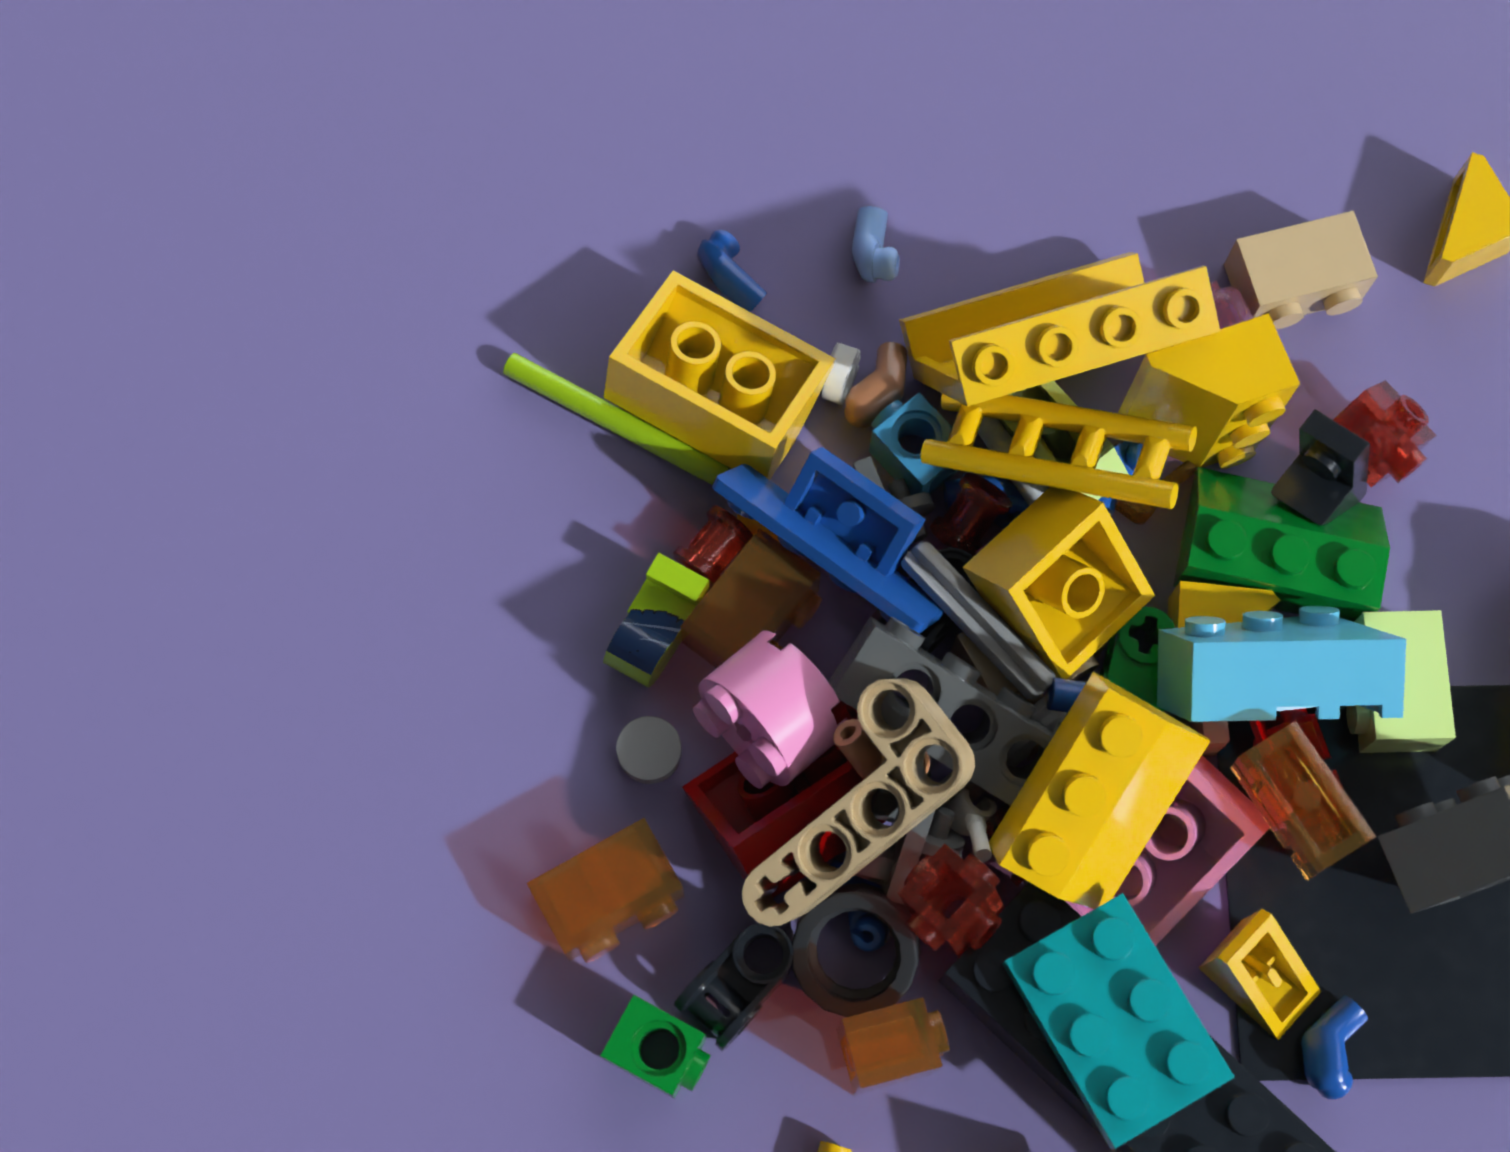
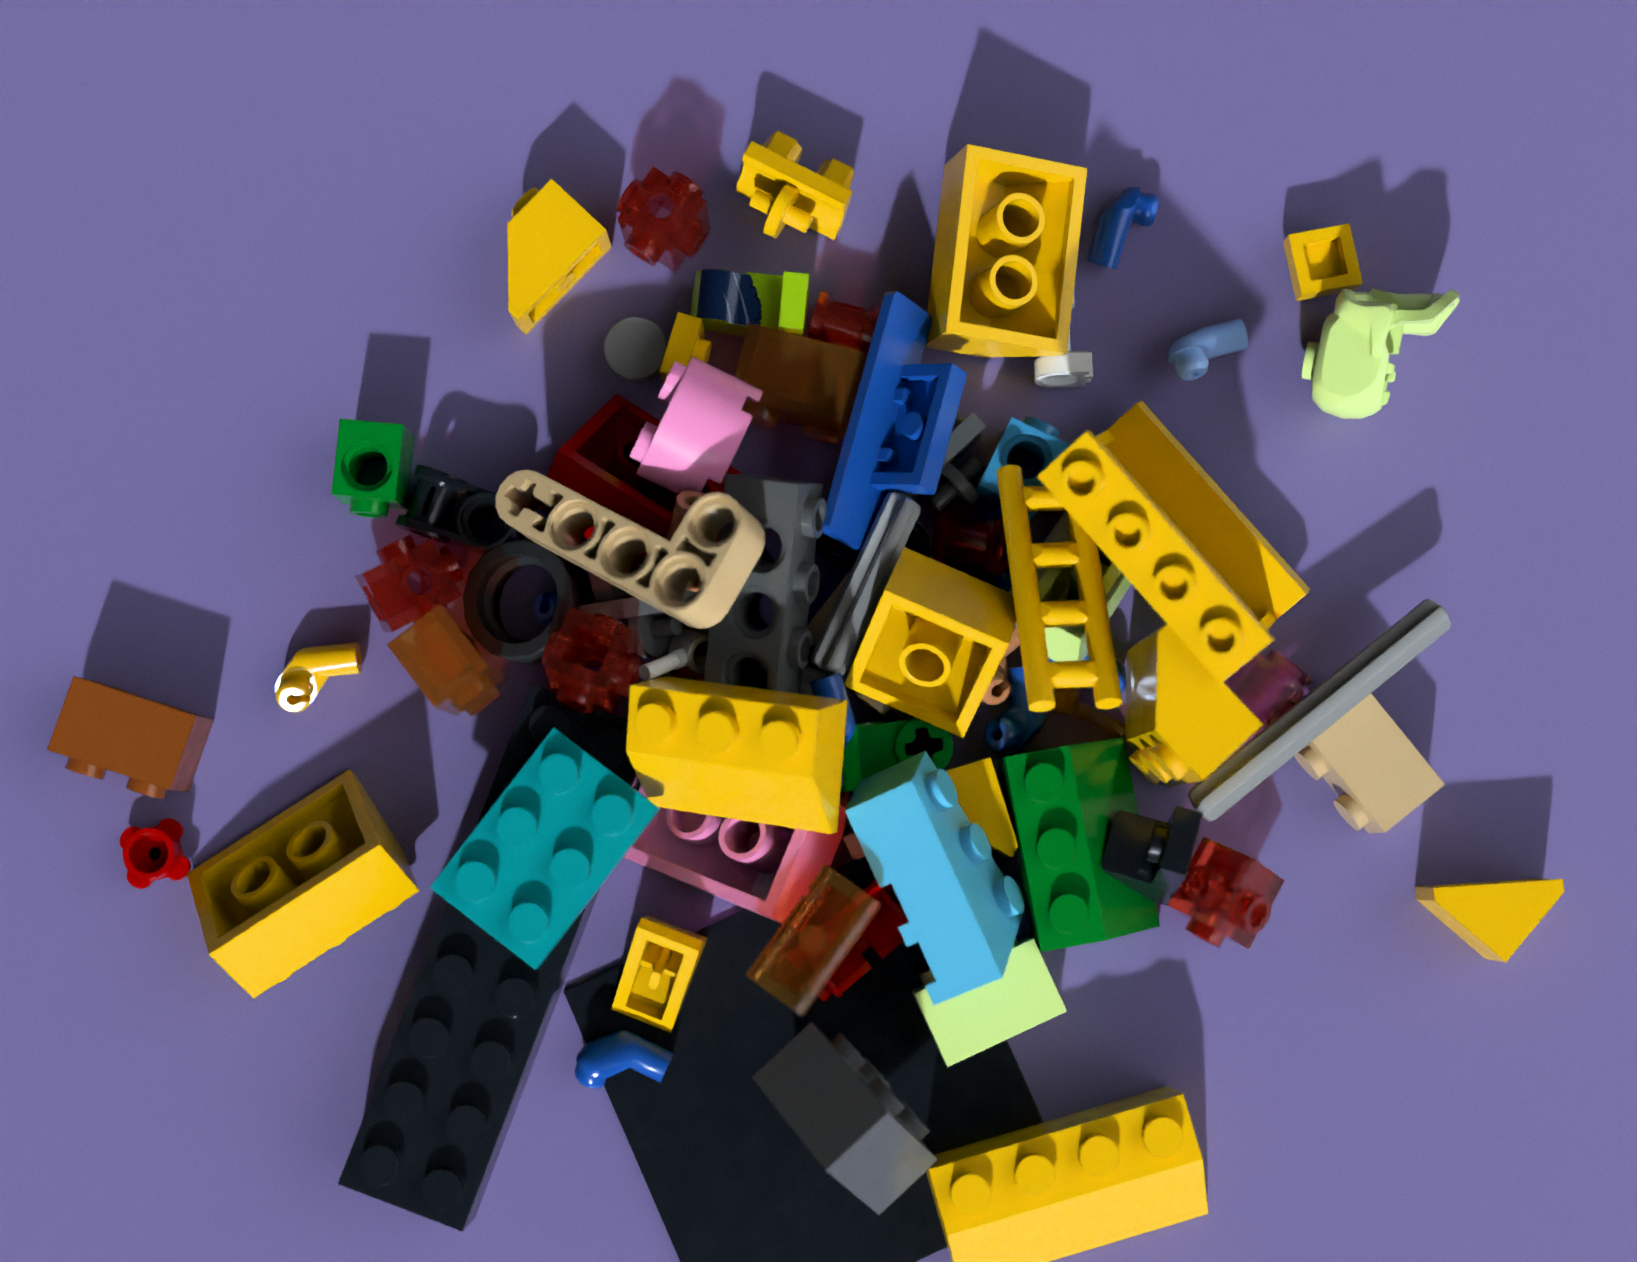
camera: 65 degrees right, 10 degrees up
(516, 788) = (548, 251): none -> yellow slope
(546, 687) = (666, 238): none -> clear red brick
(567, 540) = (792, 192): none -> yellow hips
(607, 892) = (491, 366): clear orange brick -> none
(613, 418) = (930, 180): lime bar -> none
(673, 700) = (684, 342): none -> yellow plate
(792, 1057) = (387, 584): none -> clear red brick
(839, 120) = (1322, 262): none -> yellow plate
(879, 388) = (1067, 411): nougat arm -> none
(932, 119) = (1352, 357): none -> yellowish green head
(1148, 548) = (1016, 723): none -> blue arm
(1242, 261) = (1319, 709): none -> light grey axle

